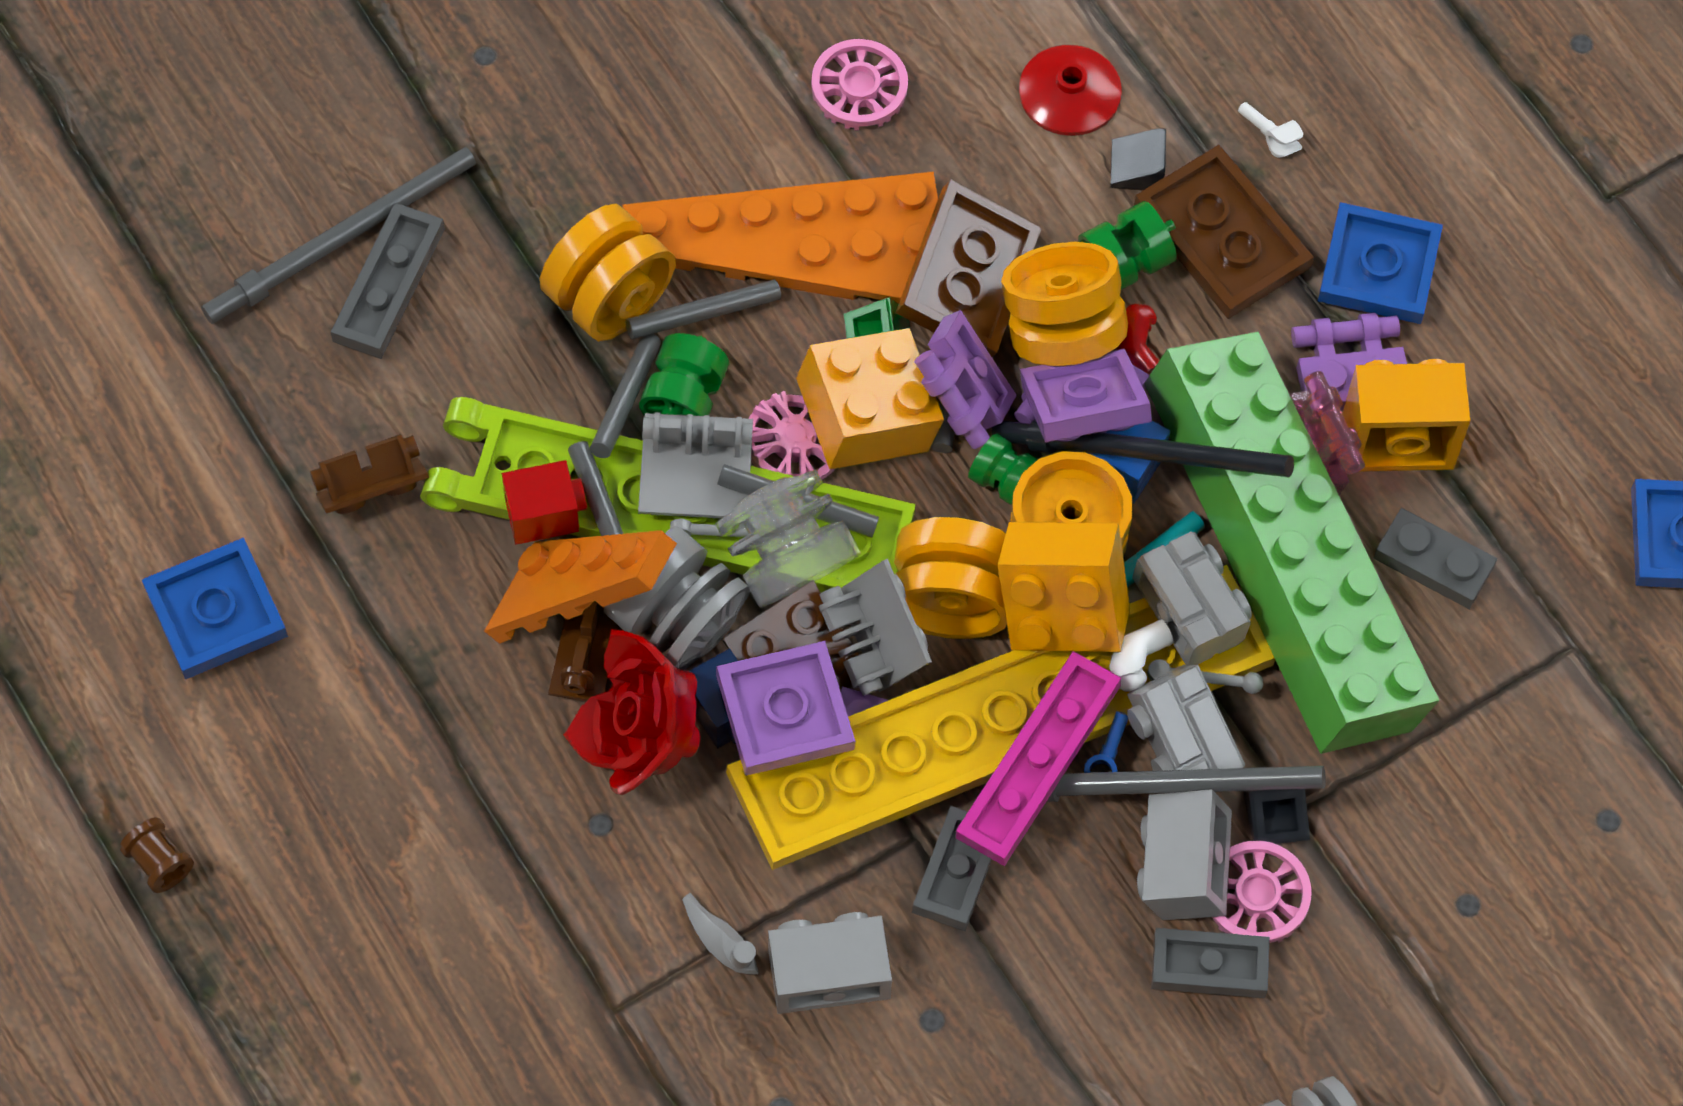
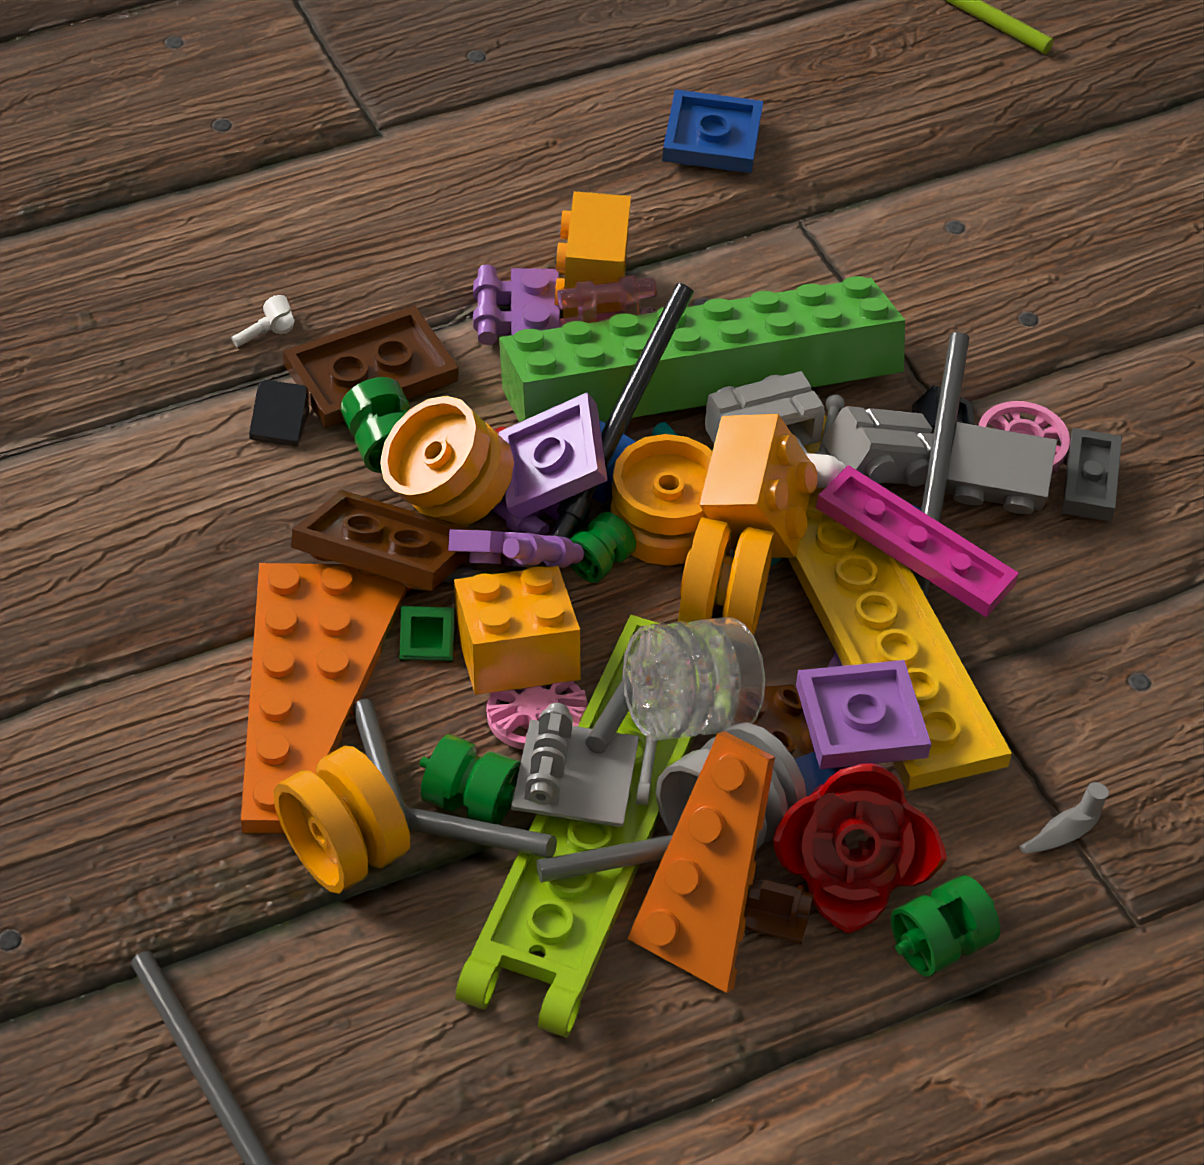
camera: 85 degrees left, 15 degrees down
(350, 486) = (542, 1077): reddish brown hinge -> none
(387, 280) = (291, 1044): dark grey plate -> none
(543, 501) = (610, 899): red brick -> none
(561, 804) = (945, 925): none -> green wheel
(829, 963) = (1099, 735): light grey brick -> none
(859, 83) = (138, 613): bright pink wheel -> none
(882, 625) = (786, 628): light grey hinge -> none
(951, 877) = (1004, 637): dark grey plate -> none
(1065, 106) = (182, 460): red dish -> none
(1380, 263) = (424, 270): blue plate -> none
(1435, 558) = (721, 275): dark grey plate -> none

